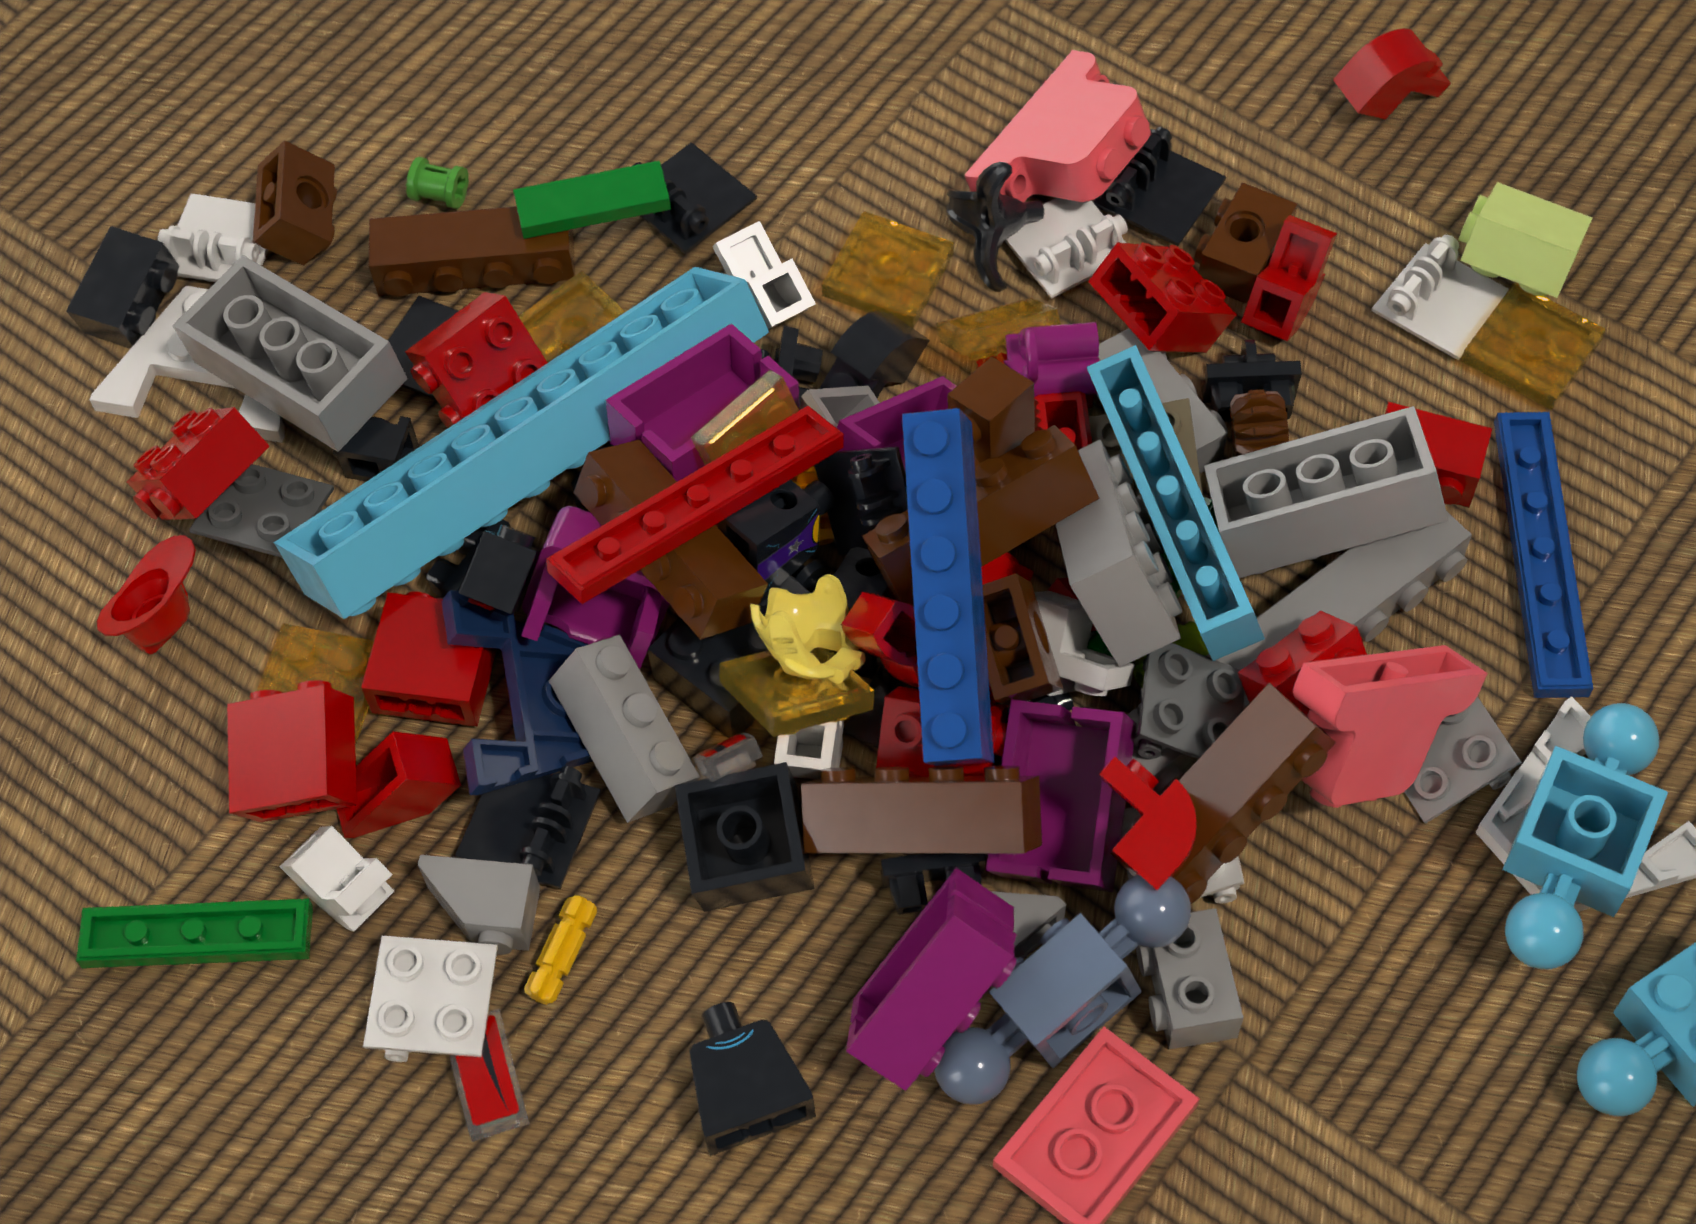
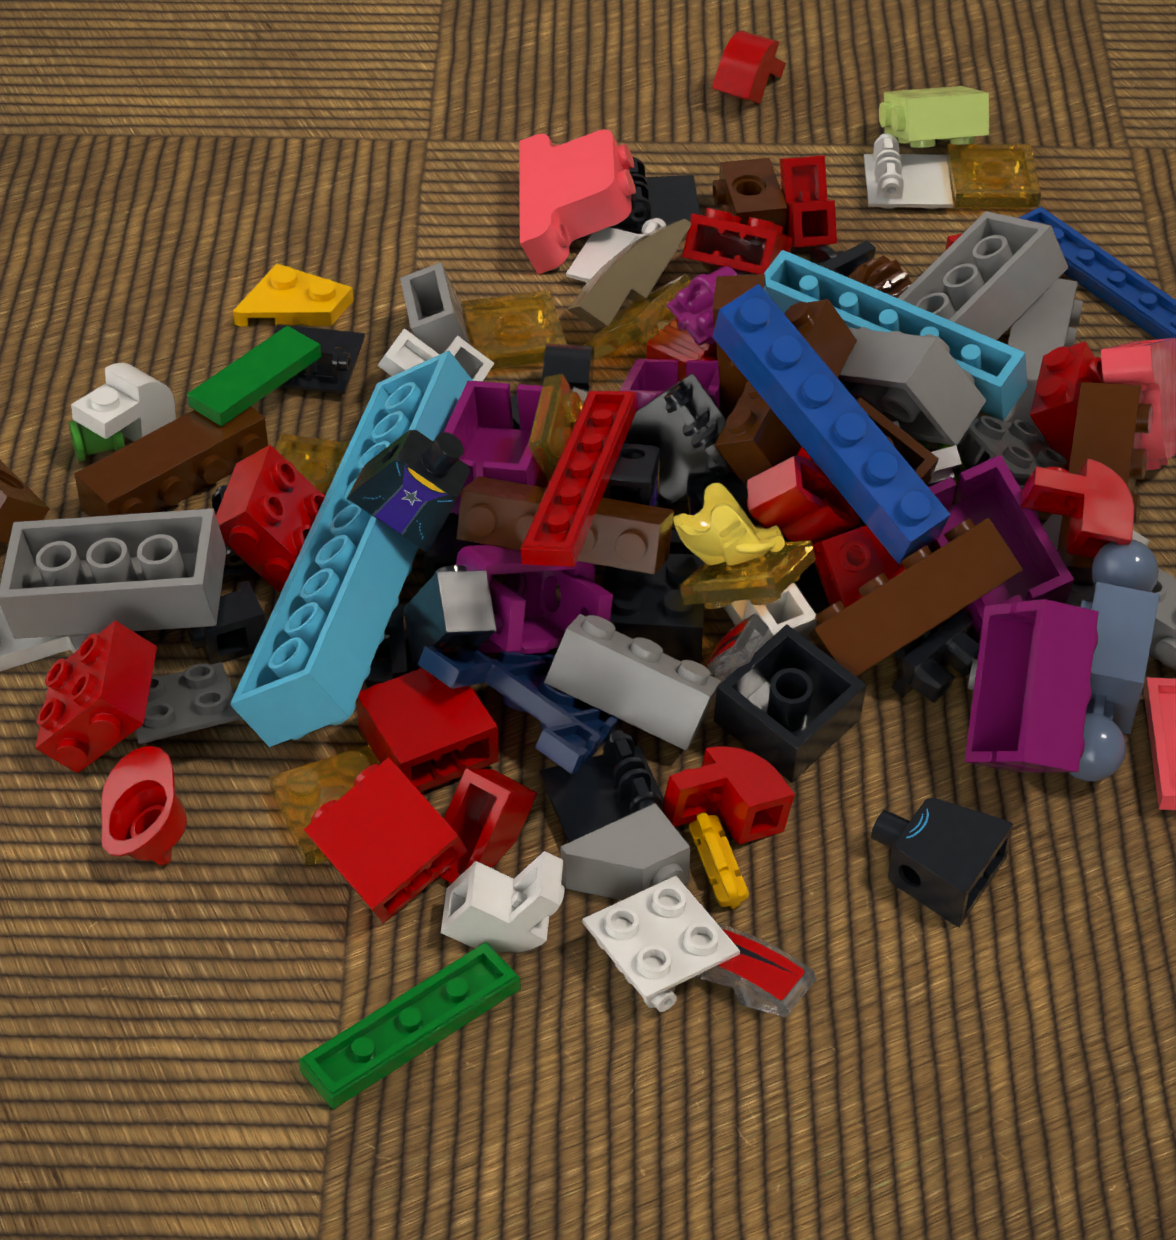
camera: 40 degrees left, 15 degrees down
(477, 161) = (126, 403): none -> white brick
(551, 424) = (413, 485): none -> black torso
(626, 885) = (734, 786): none -> red brick
(732, 120) = (294, 299): none -> yellow wing
(818, 215) = (433, 308): none -> light grey piece
(990, 219) = (560, 258): black piece -> none
(1025, 270) = (628, 275): none -> dark tan slope

